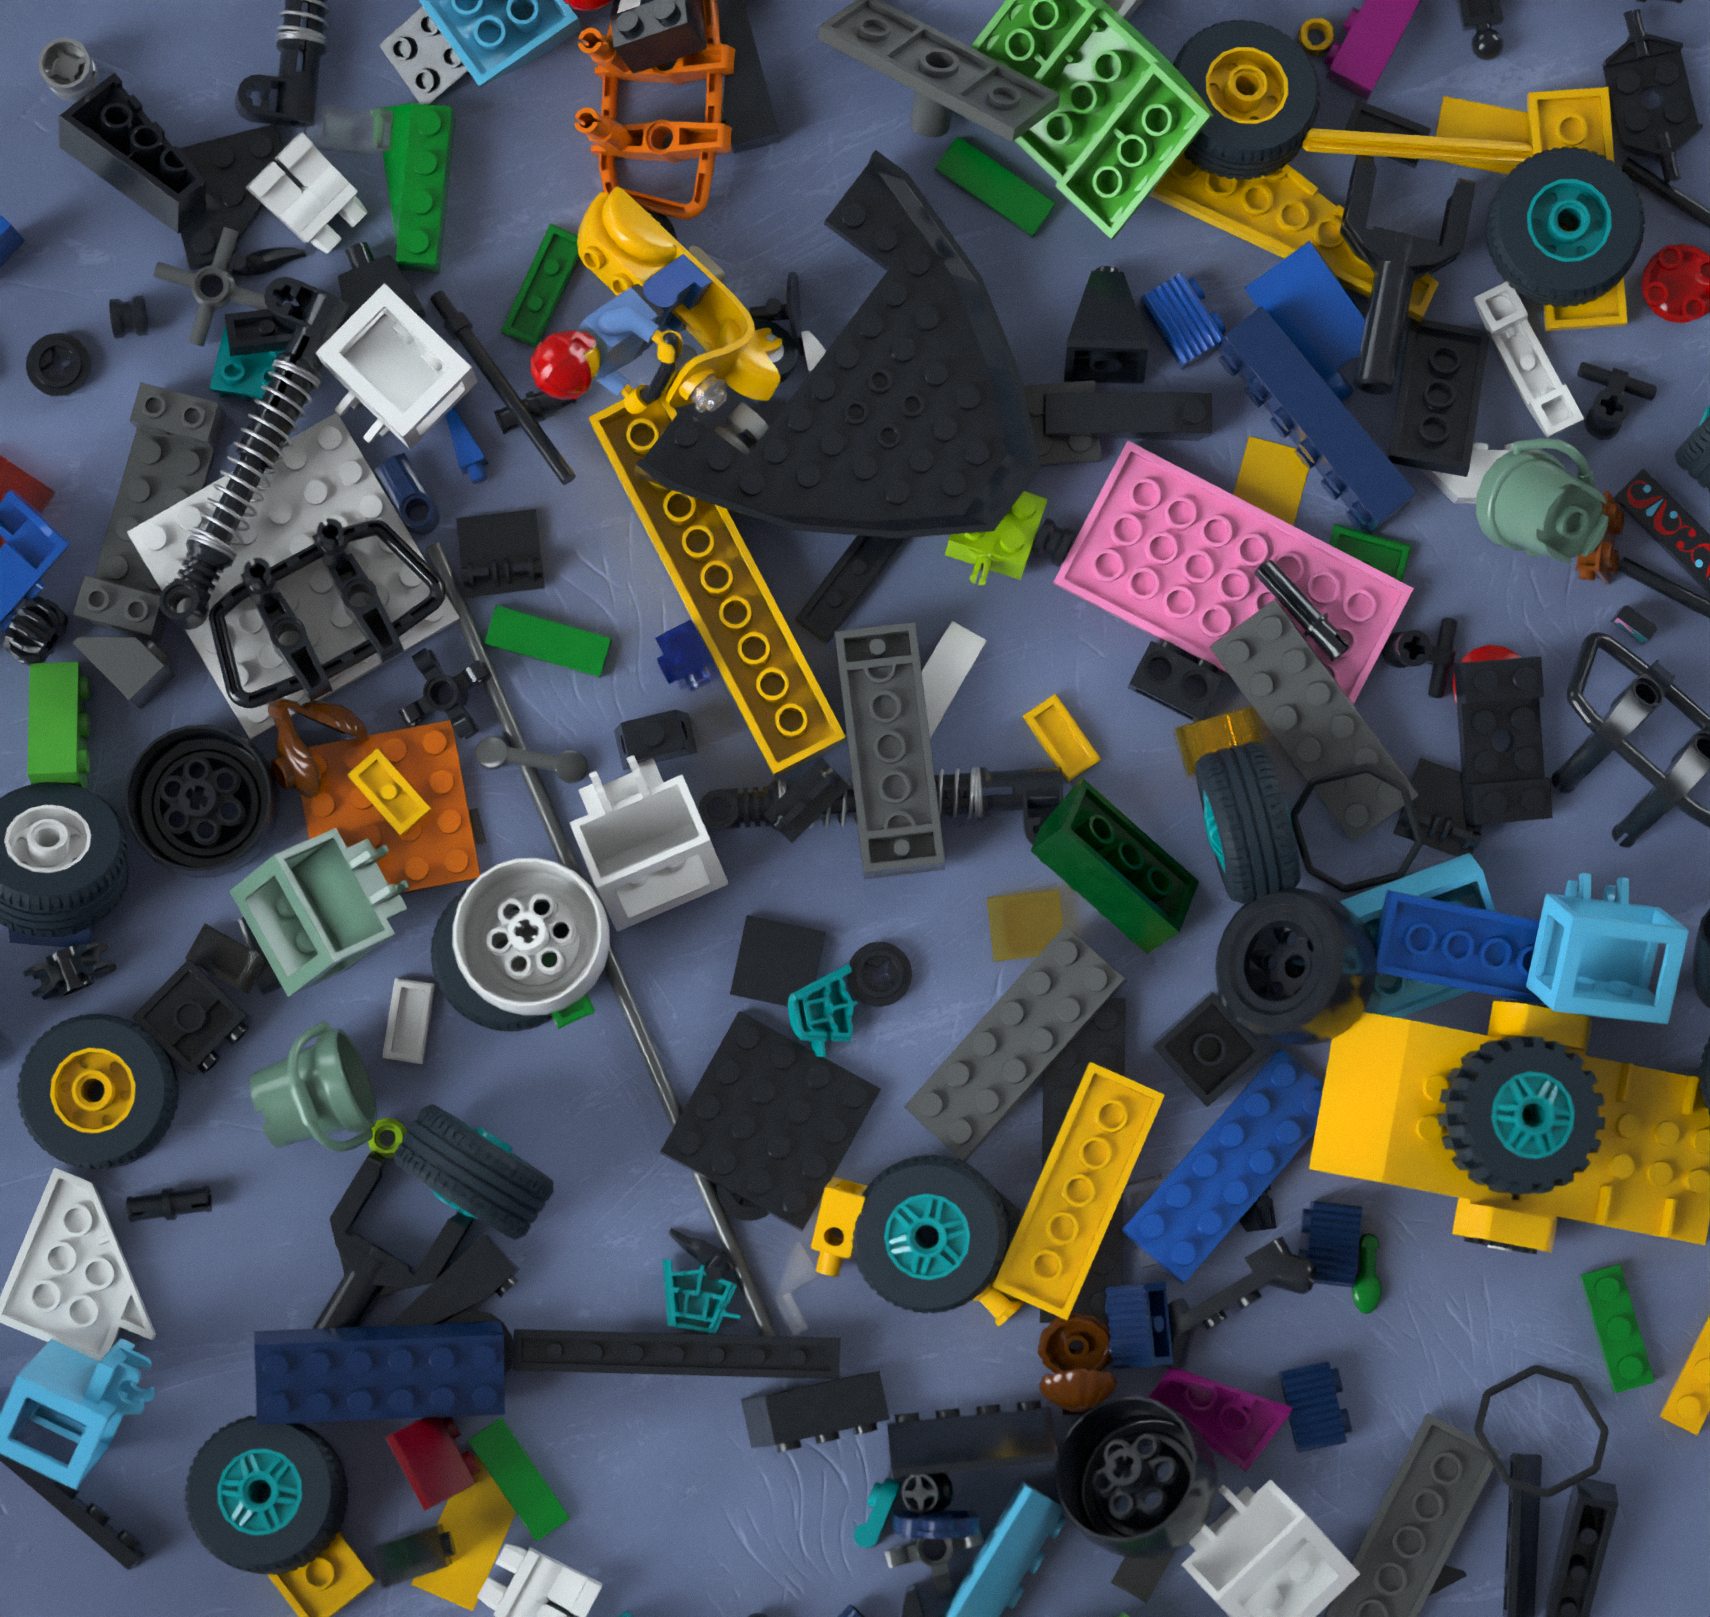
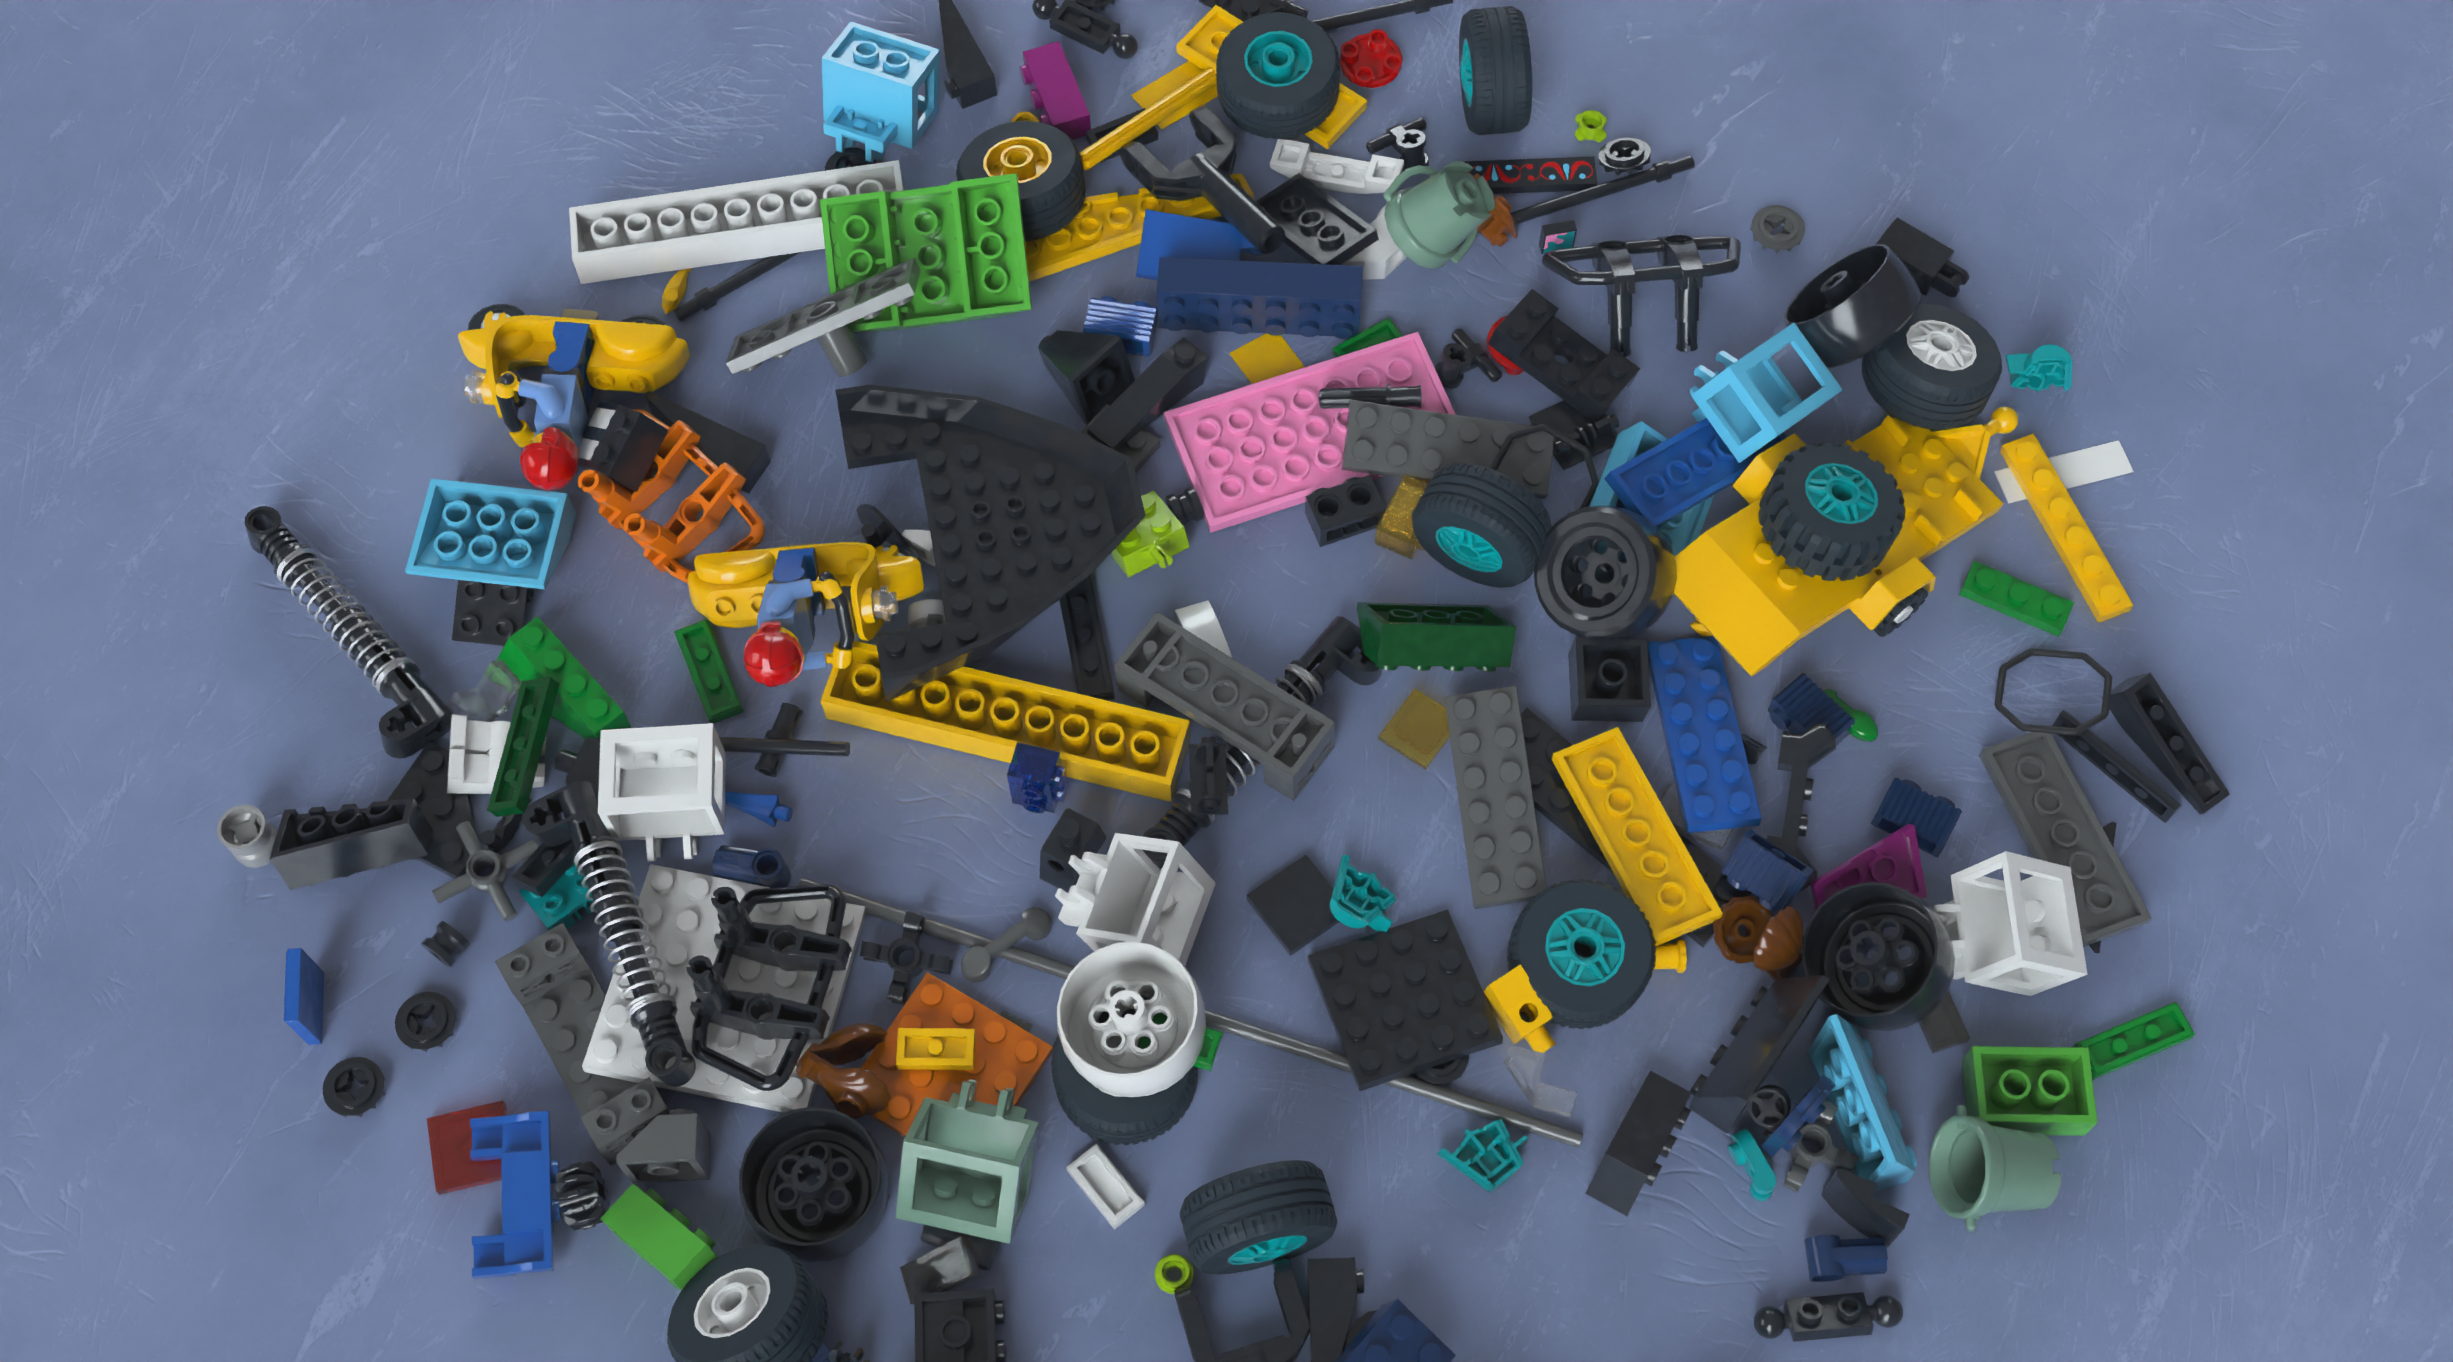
camera: 50 degrees left, 20 degrees down
(316, 1092) = (1095, 1286): sand green piece -> none
(330, 217) = (523, 747): none -> dark green plate
(500, 553) = (850, 845): black hinge -> none
(548, 641) = (938, 866): green tile -> none
(676, 1354) = (1515, 1201): black plate -> none
(706, 1253) = (1457, 1124): black bar -> none
(898, 970) = (1376, 833): black gear -> none
(994, 186) = (929, 364): green tile -> none
(1061, 738) = (1313, 607): yellow tile -> none

